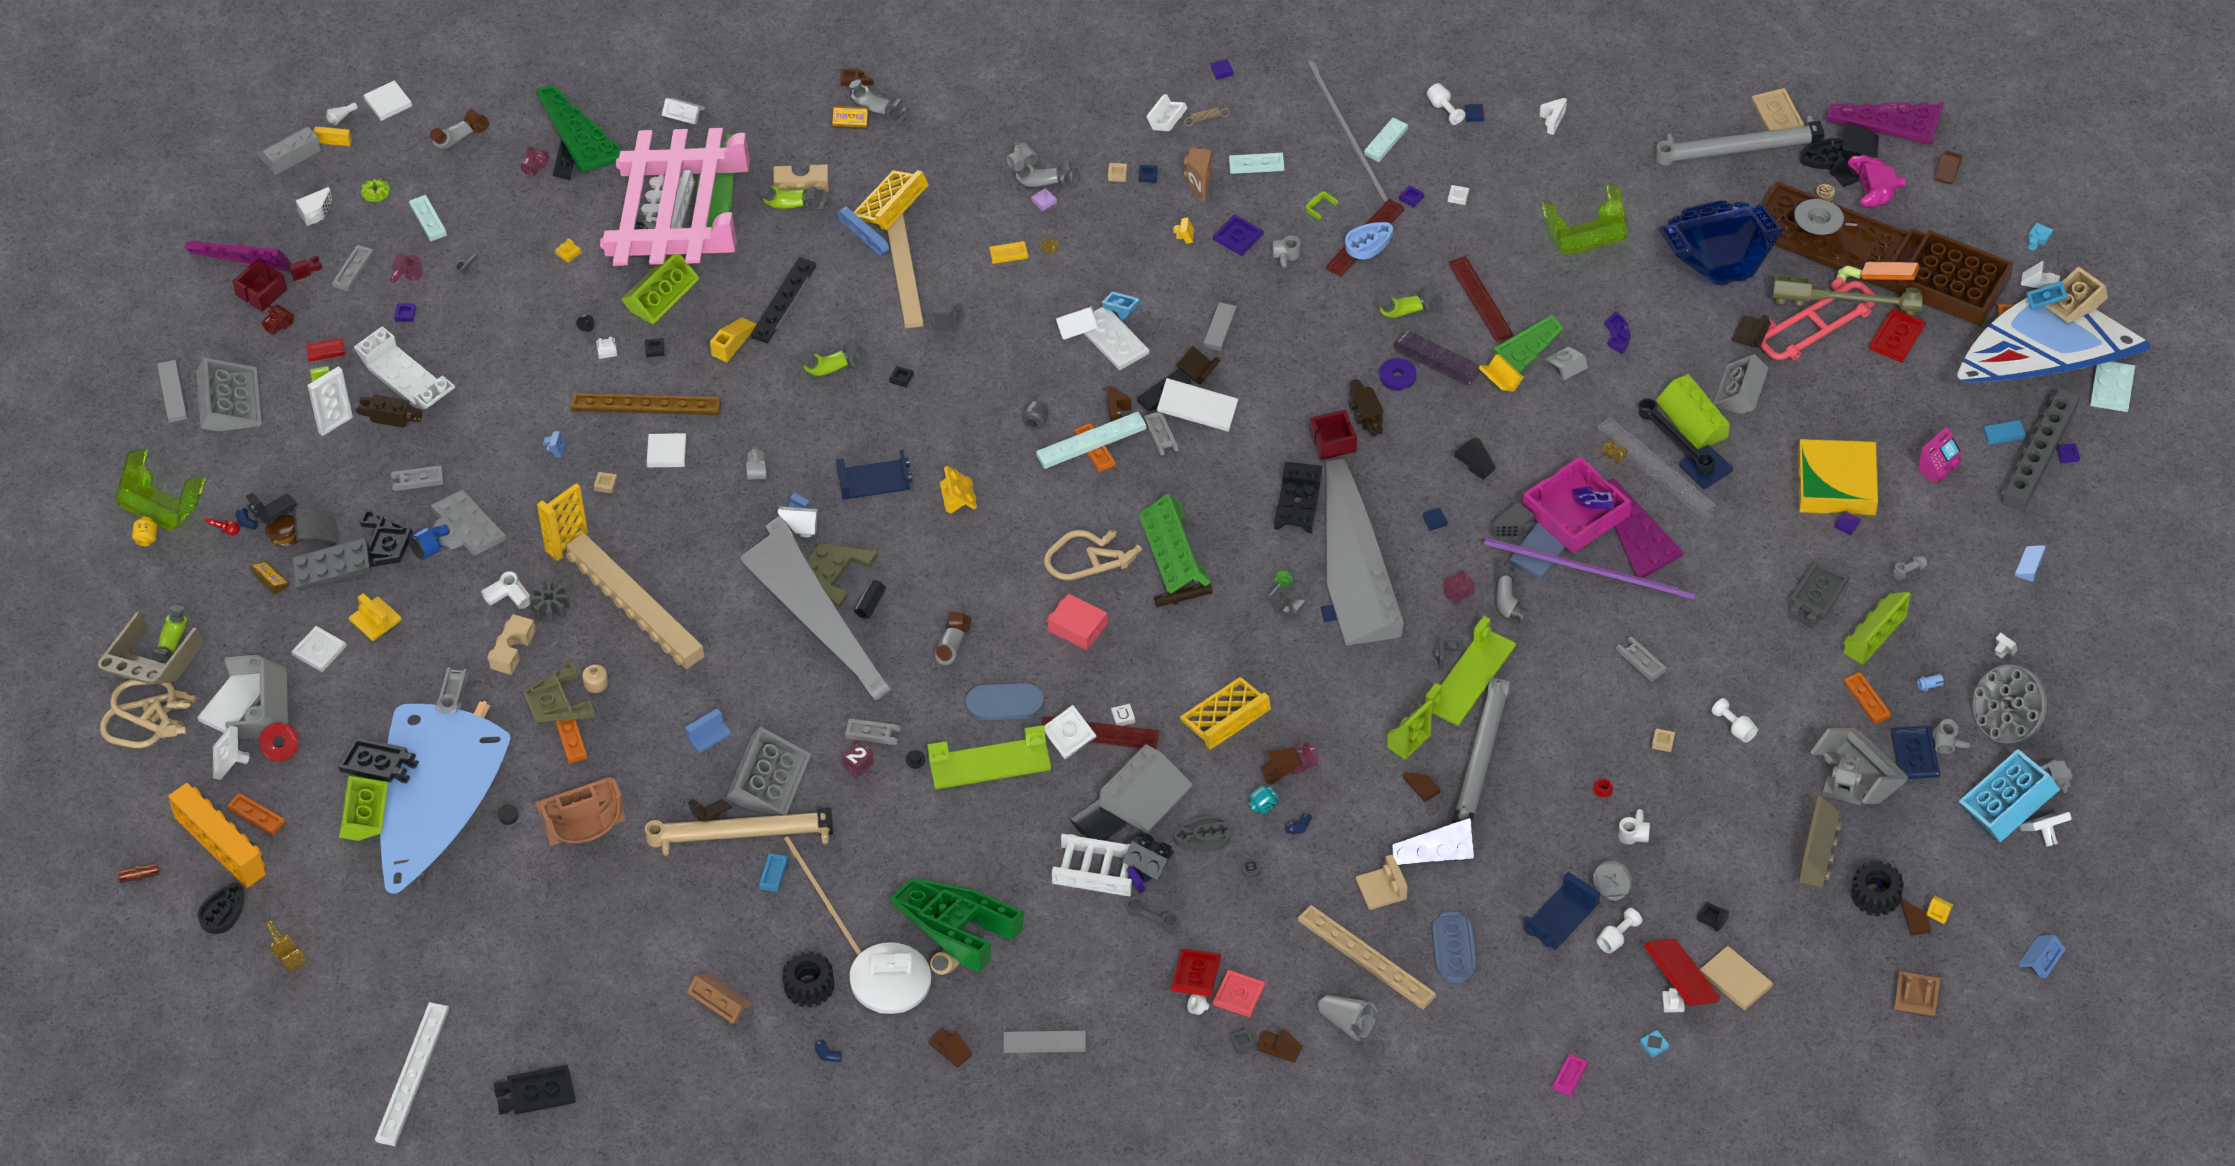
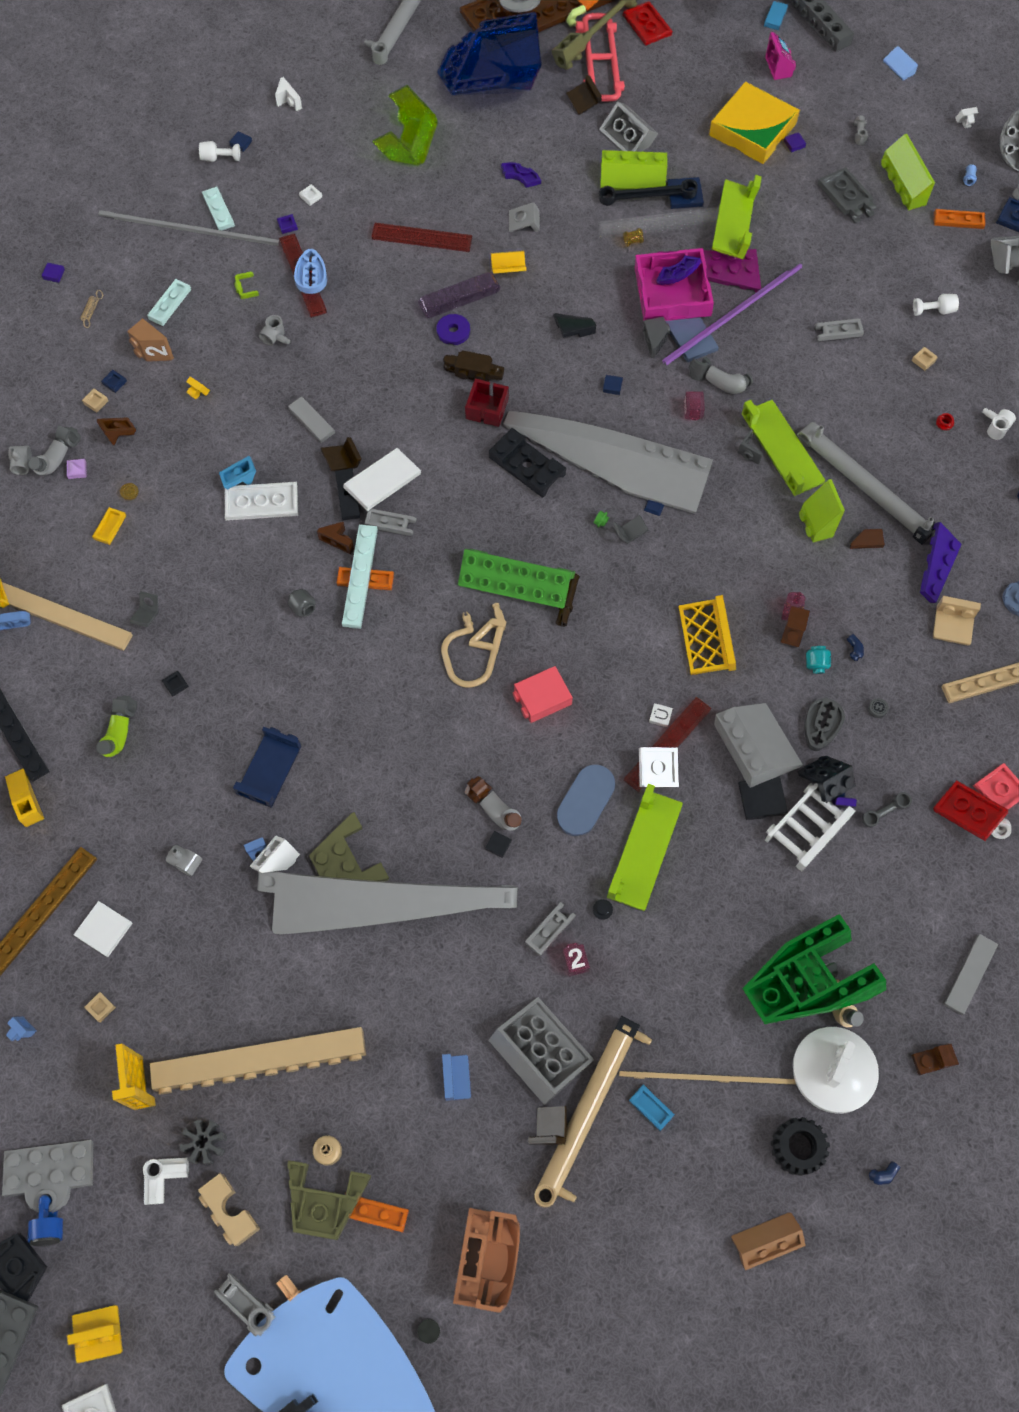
camera: 60 degrees left, 15 degrees up
(870, 599) = (402, 847): black axle -> none
(921, 662) = (498, 844): none -> black tile
(957, 490) = (336, 710): yellow bracket -> none
(1077, 322) = (228, 516): white panel -> none
(1099, 198) = (116, 427): none -> reddish brown slope
(1165, 114) = (67, 333): white bracket -> none
(1238, 235) = (229, 355): dark purple tile -> none
(1399, 307) = (391, 289): piece -> none
(1530, 343) = (490, 230): bright green wing -> none
(1701, 515) = (734, 218): none -> lime bracket

